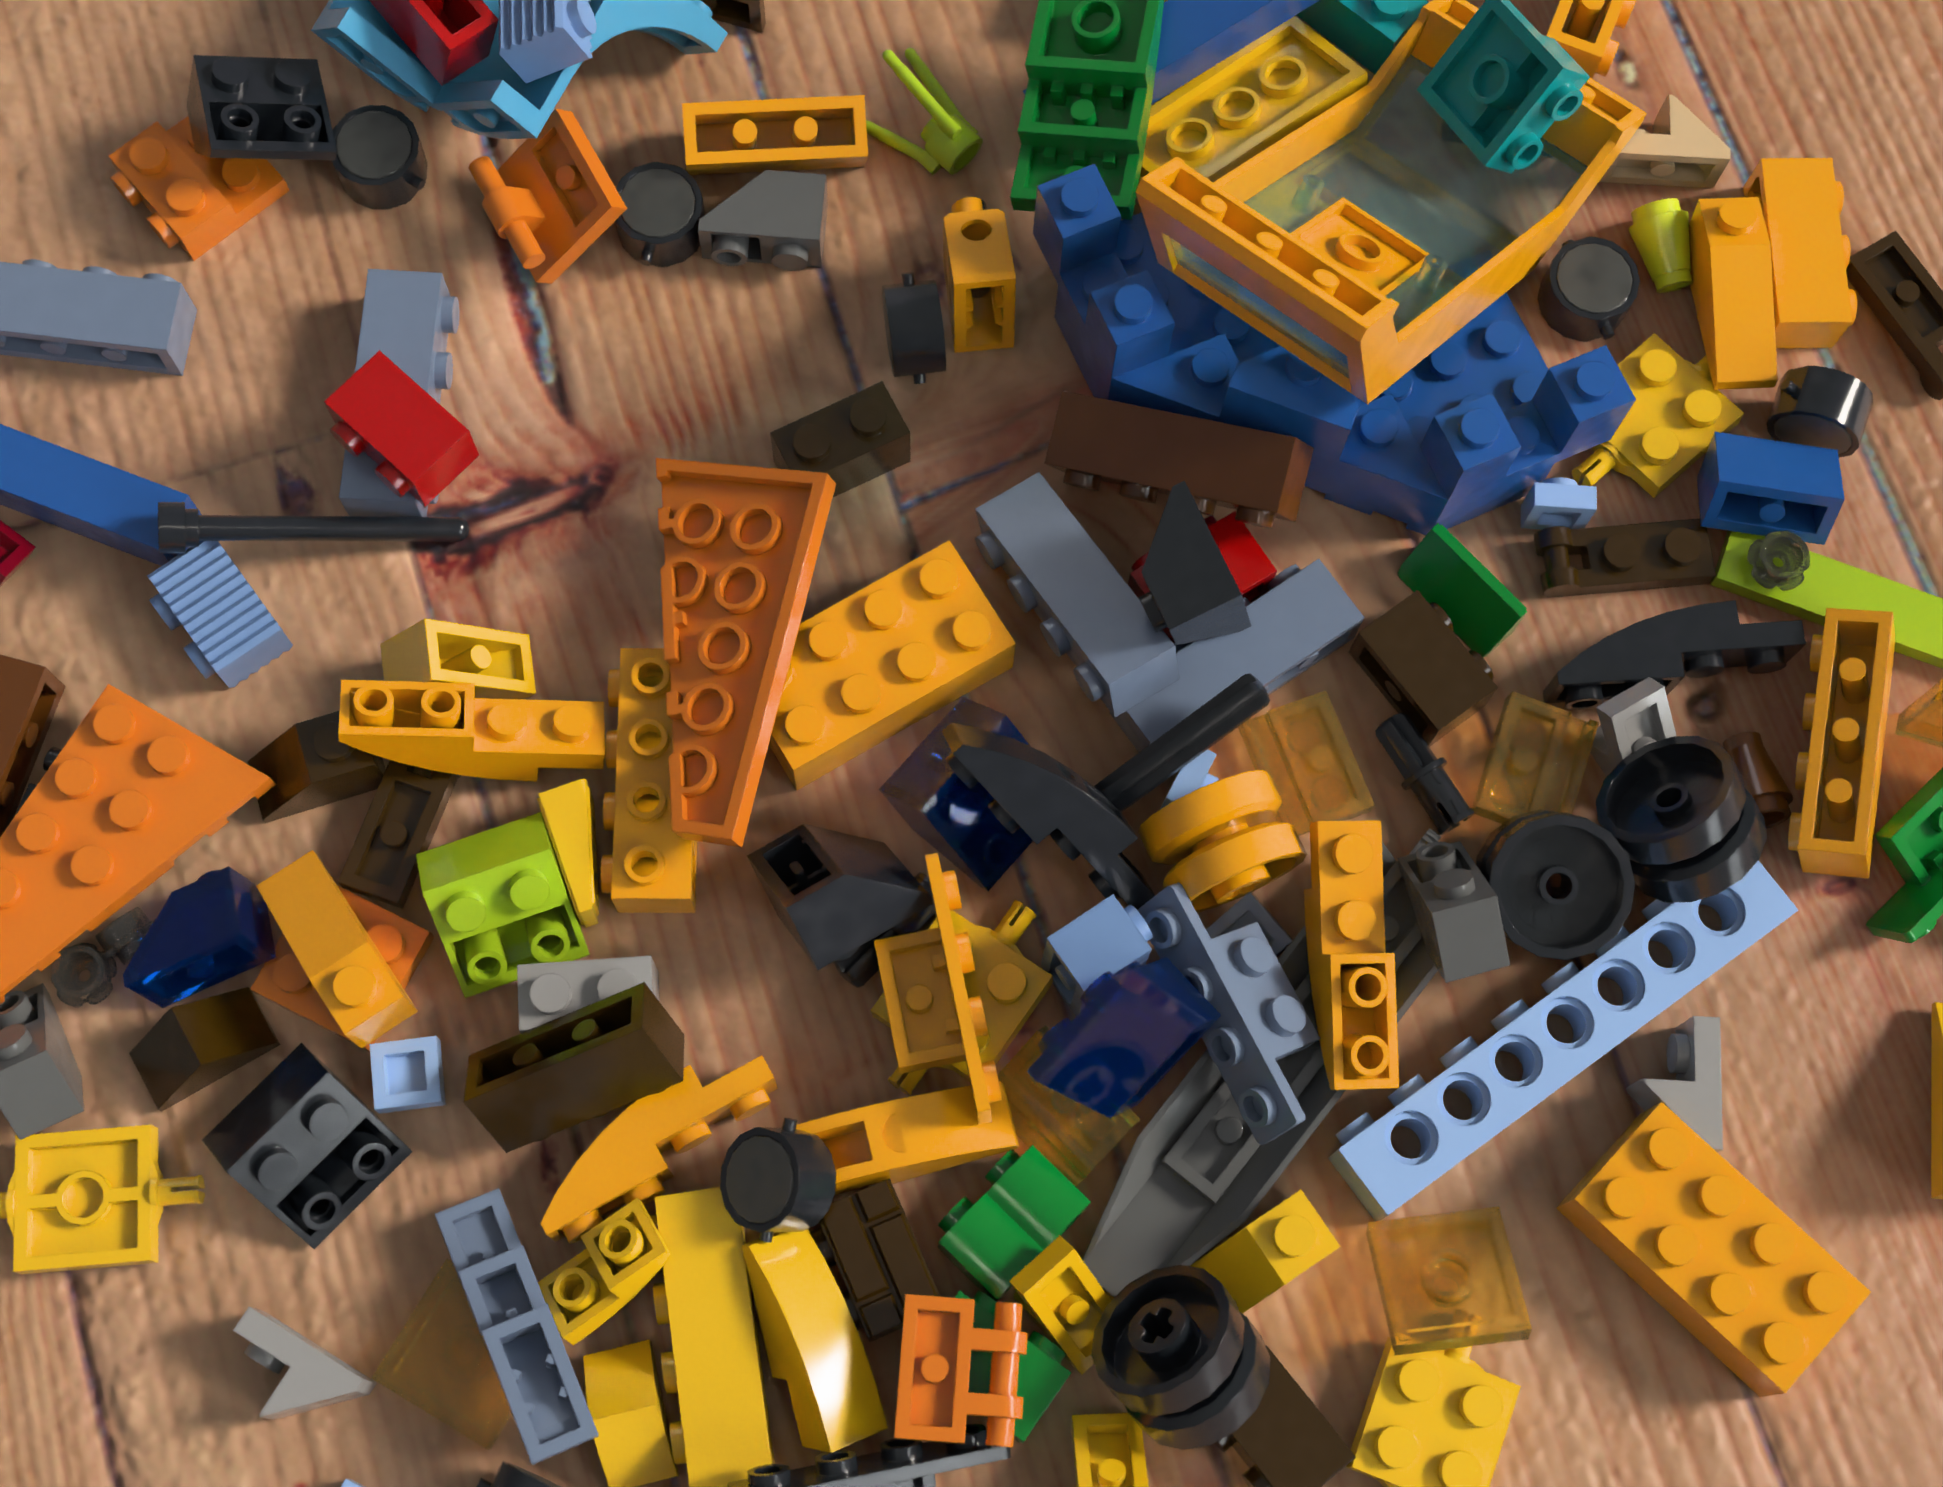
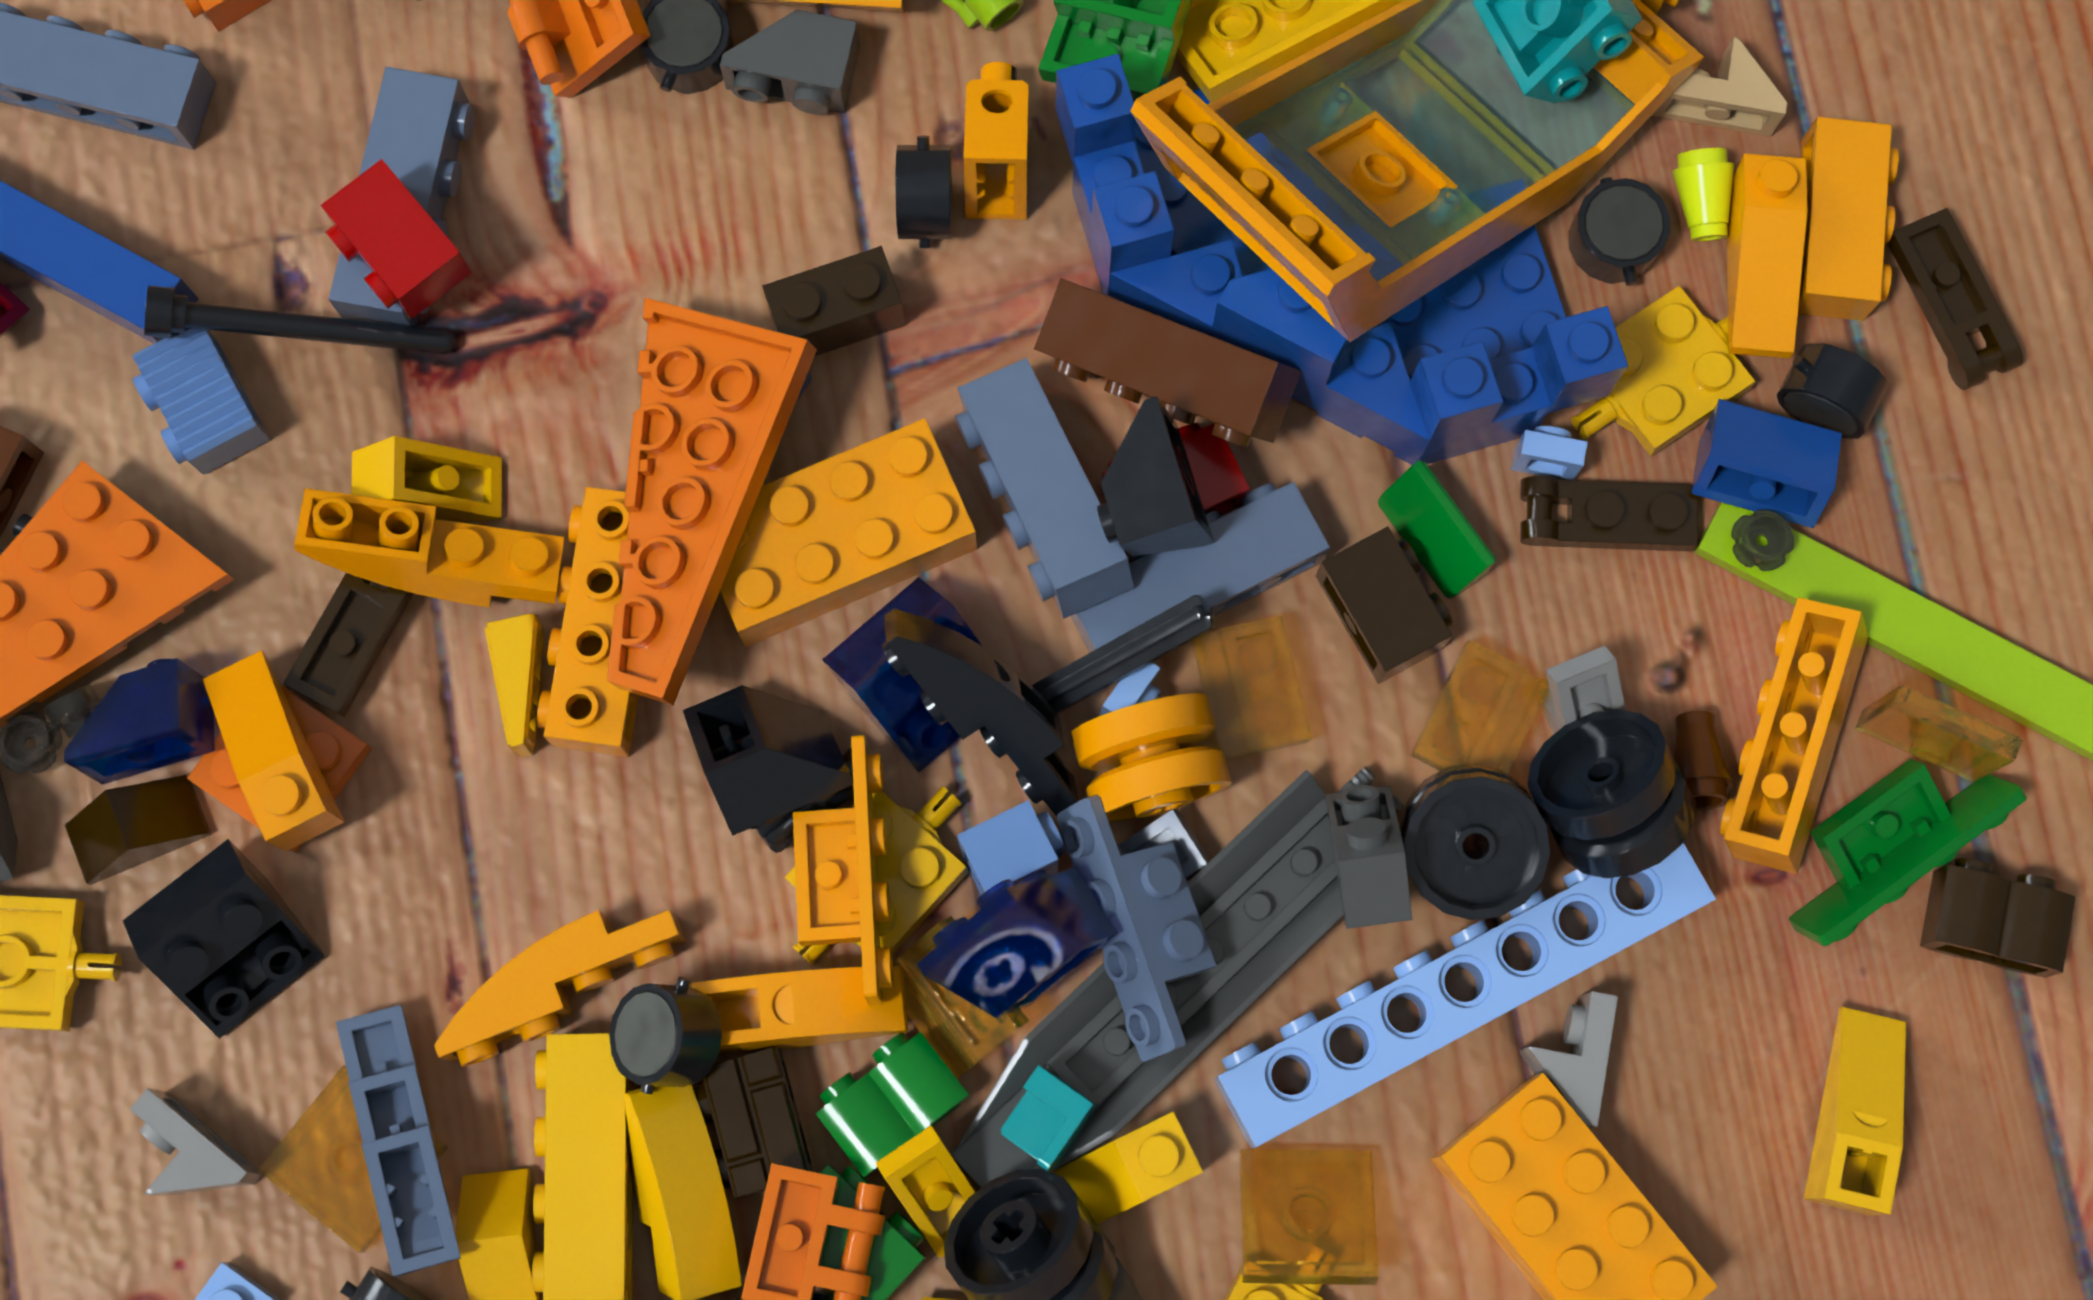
camera: 10 degrees right, 5 degrees up
(313, 769) = (270, 569): dark brown slope -> none
(407, 1074) = (327, 882): light blue plate -> none
(500, 903) = (436, 727): lime slope -> none
(563, 987) = (511, 832): light grey brick -> none
(575, 1068) = (485, 899): dark brown brick -> none
(605, 1276) = (493, 1102): yellow slope -> none
(1174, 1213) = (1048, 1118): none -> teal panel
(1348, 956) = (1258, 888): light orange slope -> none
(1423, 773) = (1368, 710): black axle -> none
(1690, 639) = (1623, 613): black slope -> none

